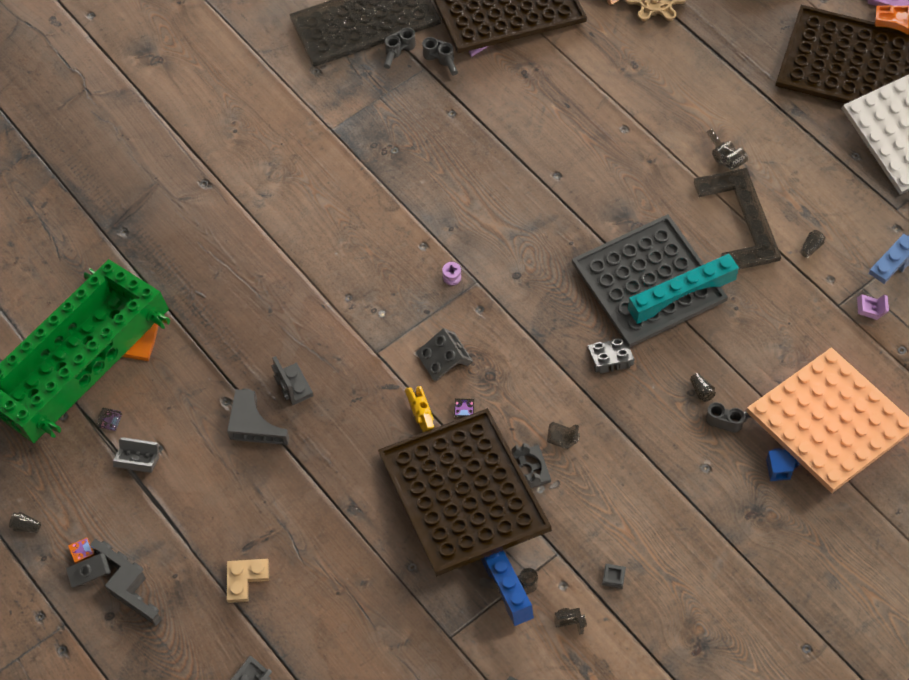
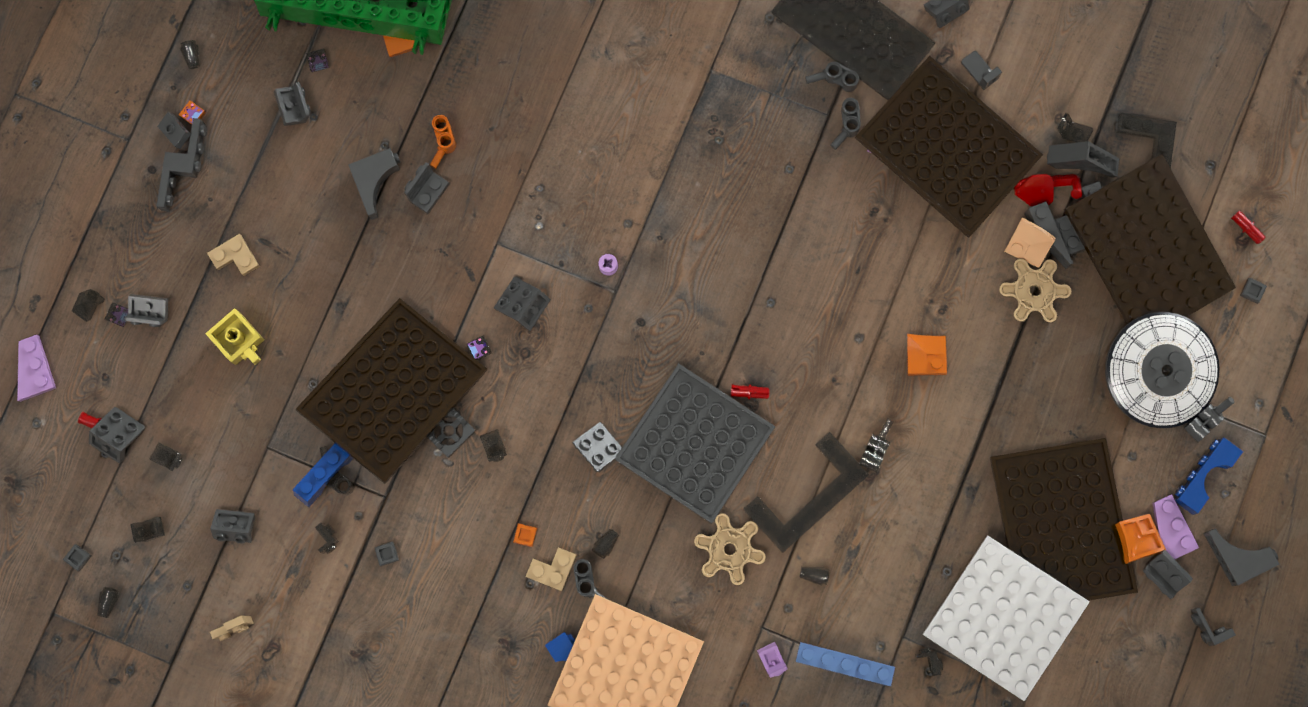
camera: 65 degrees right, 20 degrees up
(250, 345) = (442, 135): none -> orange beam
(340, 607) = (244, 345): none -> light yellow hinge
(420, 408) = (453, 320): yellow hinge -> none
(626, 220) = (750, 391): none -> red axle
(659, 450) = (525, 535): none -> orange tile
(667, 89) = (926, 355): none -> orange plate
(707, 443) = (554, 574): none -> tan plate
(712, 274) = (692, 479): teal arch -> none
(755, 284) = (728, 535): none -> tan plate

